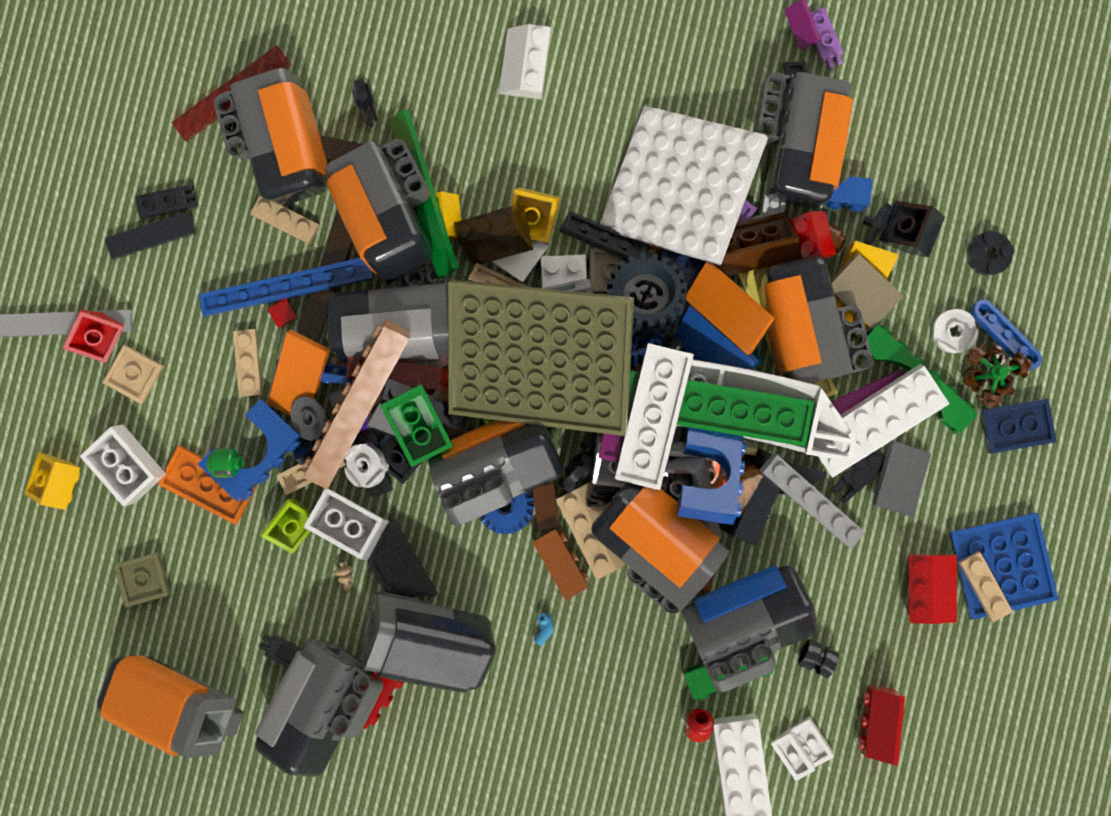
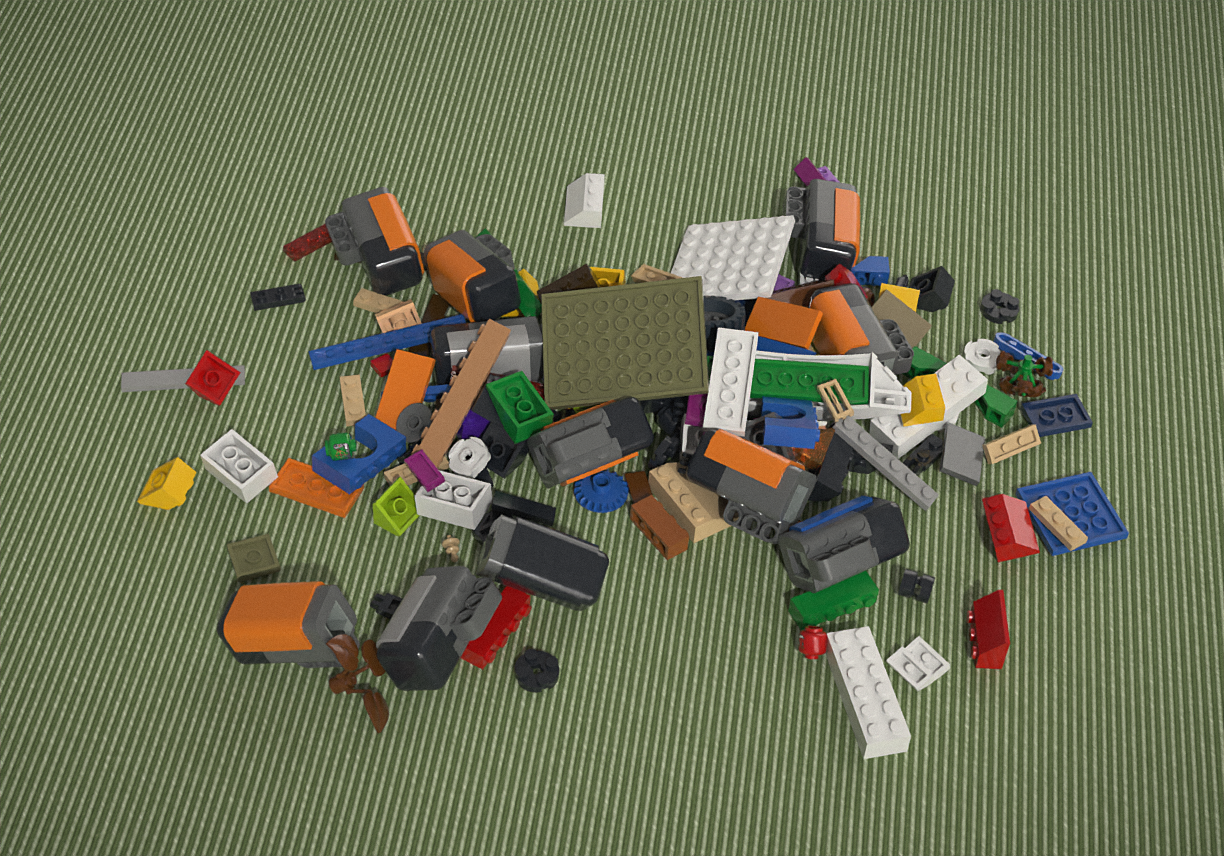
camera: 15 degrees left, 40 degrees down
(133, 374) = (245, 412): tan tile -> none
(150, 235) = (263, 318): black tile -> none
(220, 757) = (346, 653): none -> reddish brown plant
(295, 255) = (398, 317): none -> light nougat slope
(313, 499) = (424, 470): none -> magenta tile
(363, 100) = (447, 226): black piece -> none
(420, 533) = (523, 508): none -> black tile
(433, 730) = (536, 660): none -> black plate
(546, 628) = (651, 579): dark azure arm -> none
(597, 202) = (649, 274): none -> tan plate
(762, 427) = (841, 414): none -> tan tile
(872, 433) = (926, 401): none -> yellow slope
(959, 467) = (1011, 444): none -> tan plate

